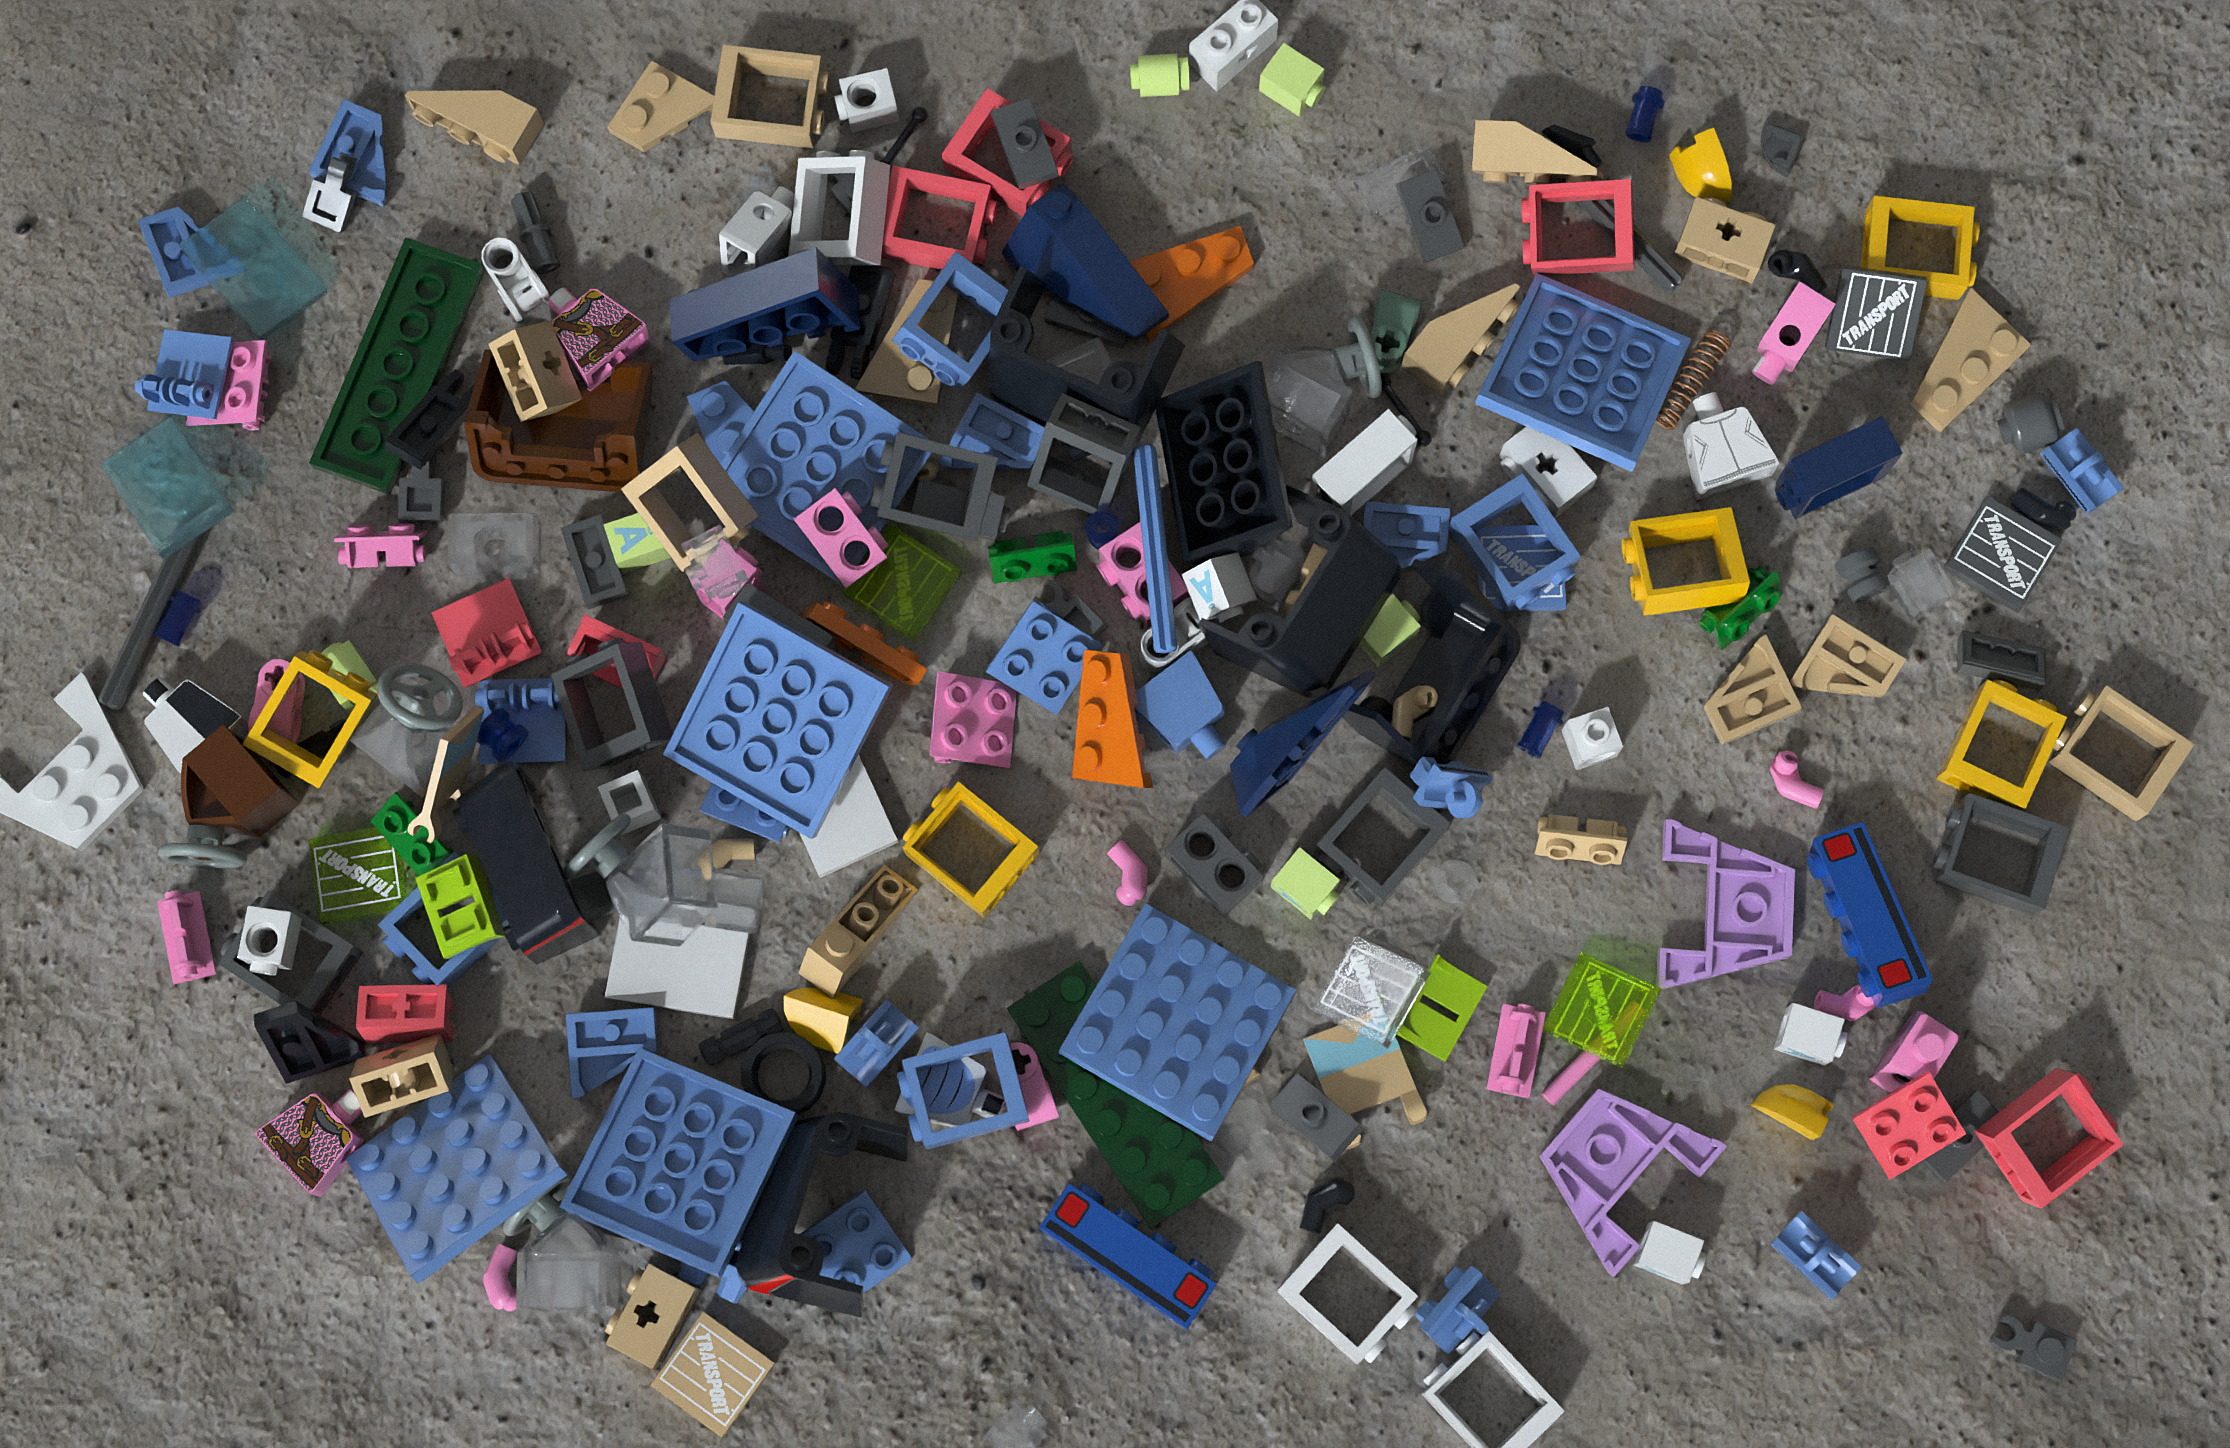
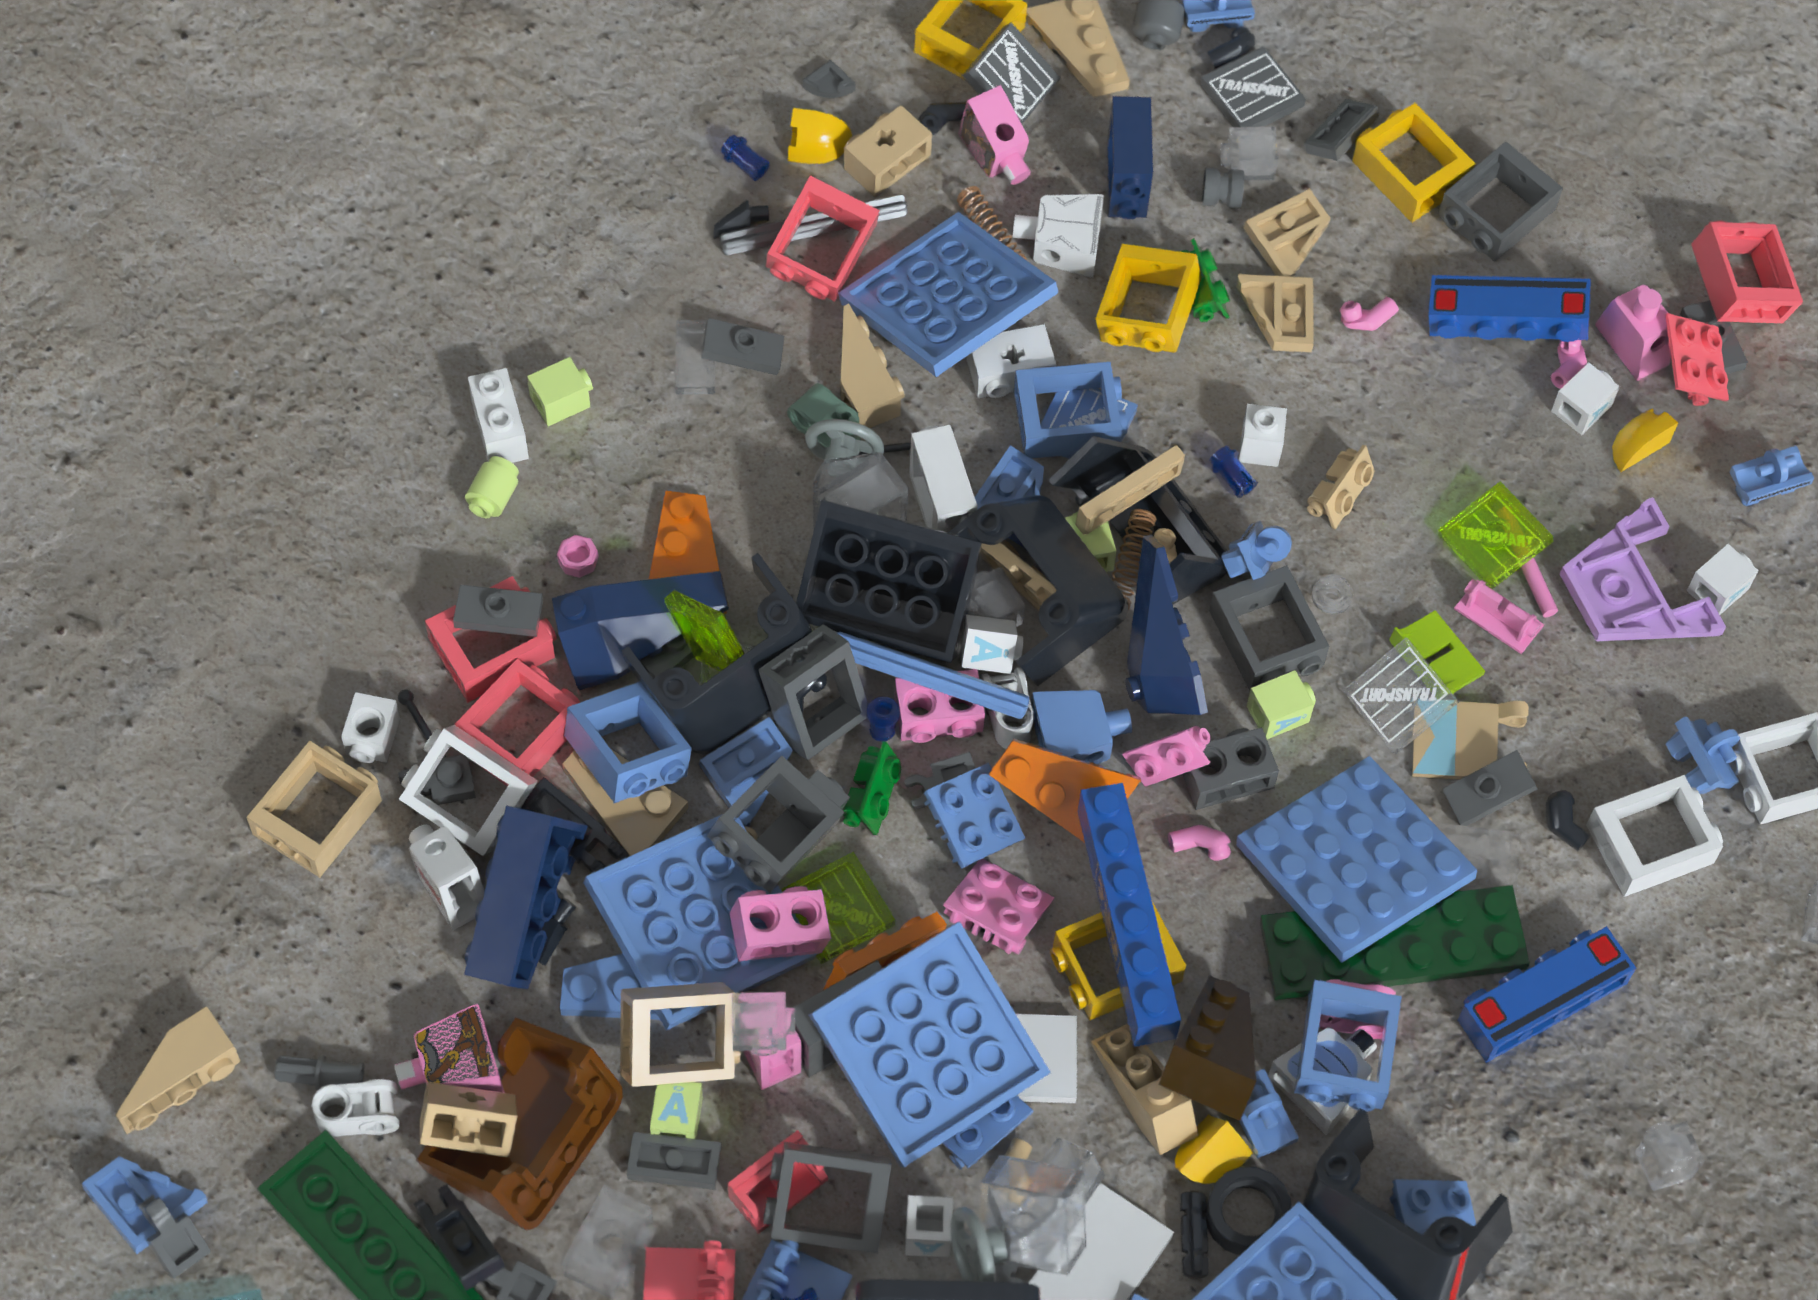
camera: 70 degrees left, 15 degrees down
(658, 107) = (263, 910): tan wing -> none
(903, 969) = (1215, 1051): none -> dark brown wedge
(996, 835) = (1128, 915): none -> blue brick
(1085, 327) = (704, 631): none -> clear neon green tile
(1132, 184) = (577, 556): none -> bright pink tile
(1191, 803) = (1169, 755): none -> bright pink hinge
(1436, 665) = (1143, 523): none -> medium nougat piece
(1443, 639) = (1130, 490): none -> tan tile
(1517, 151) = (728, 251): tan slope -> none
(1745, 909) = (1457, 396): lavender wing -> none
(2172, 745) = (1484, 67): tan window -> none

